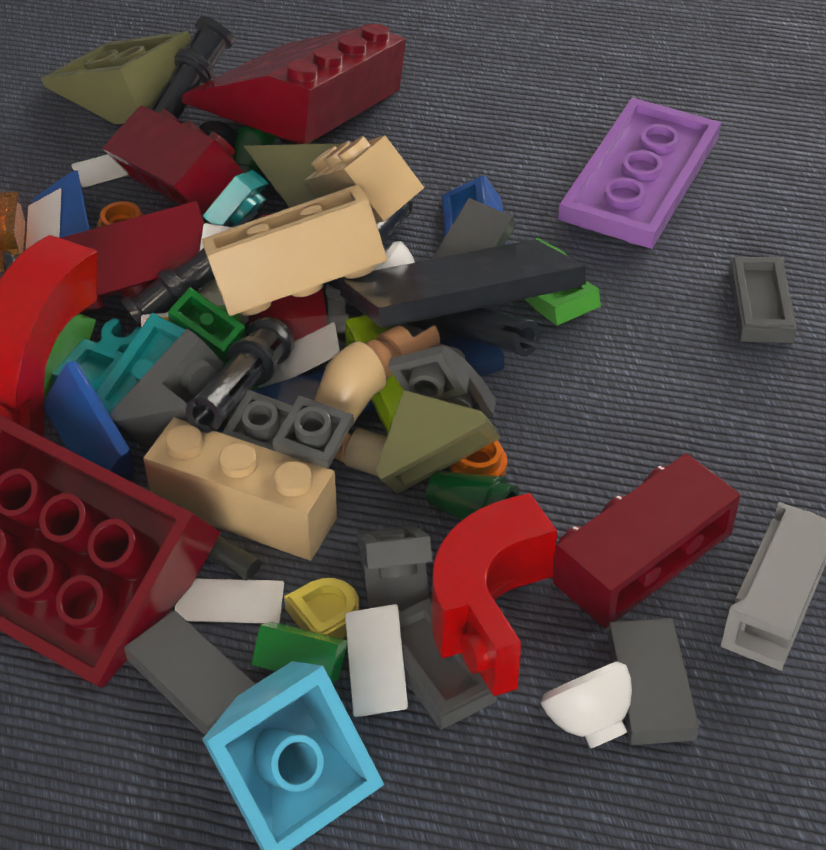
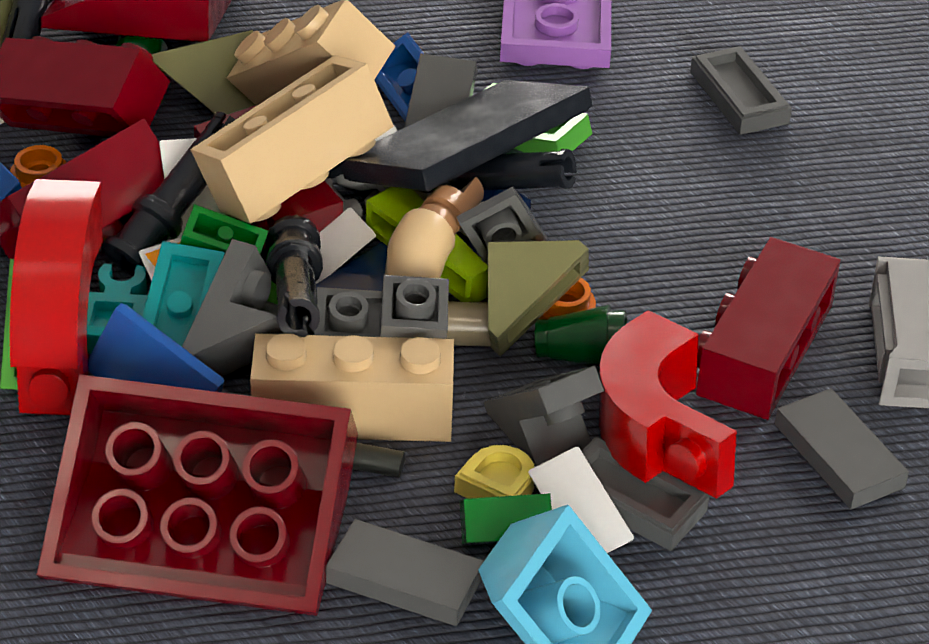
camera: 25 degrees left, 5 degrees down
(232, 601) = (398, 498): white sticker -> none
(237, 199) = (177, 112): teal plate -> none
(592, 704) = (807, 479): white brick -> none

